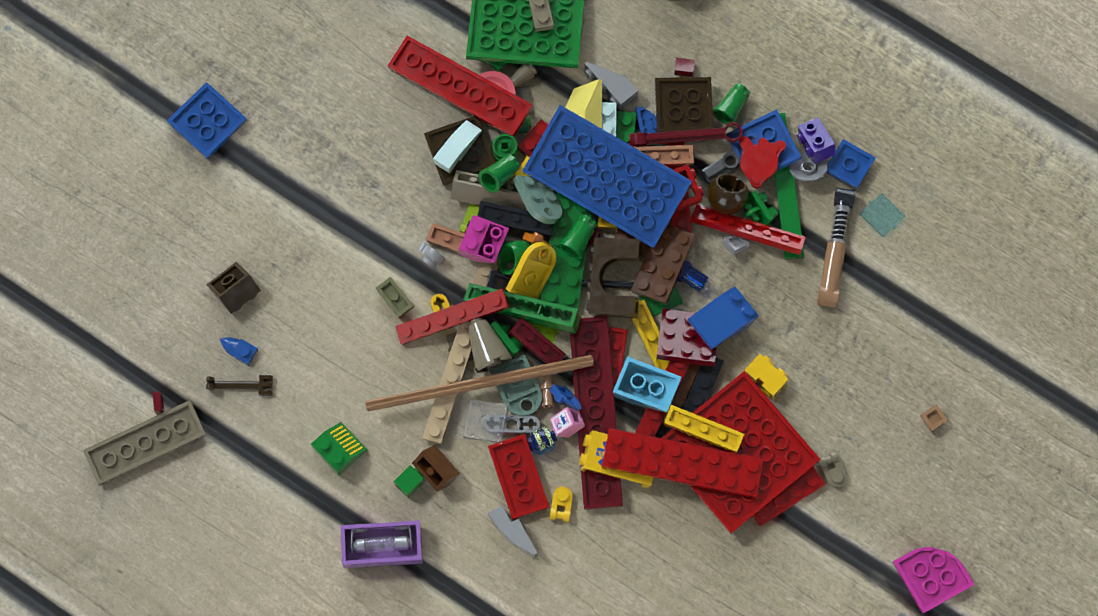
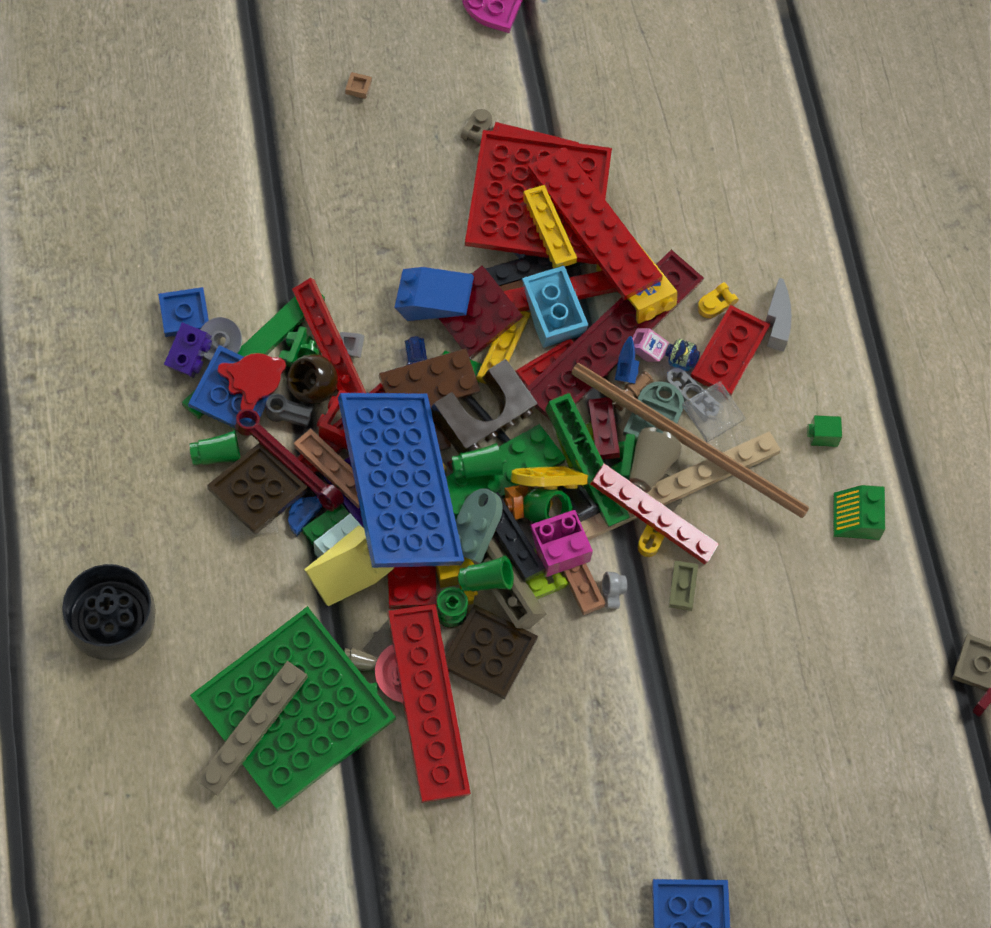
camera: 140 degrees left, 10 degrees down
(234, 287) = (819, 735): dark brown slope -> none
(239, 349) = (864, 681): blue plate -> none
(261, 385) = (874, 630): dark brown hinge -> none
(381, 544) = (900, 403): medium lavender piece -> none
(436, 468) = (794, 415): reddish brown brick -> none
(456, 146) = (492, 647): light aqua slope -> none
(614, 85) = (292, 561): light grey slope -> none
(684, 67) = (215, 522): dark red tile -> none
(767, 375) = (449, 230): yellow brick -> none
(835, 249) = (324, 238): piece -> none
(882, 214) = (207, 255): clear light blue piece -> none

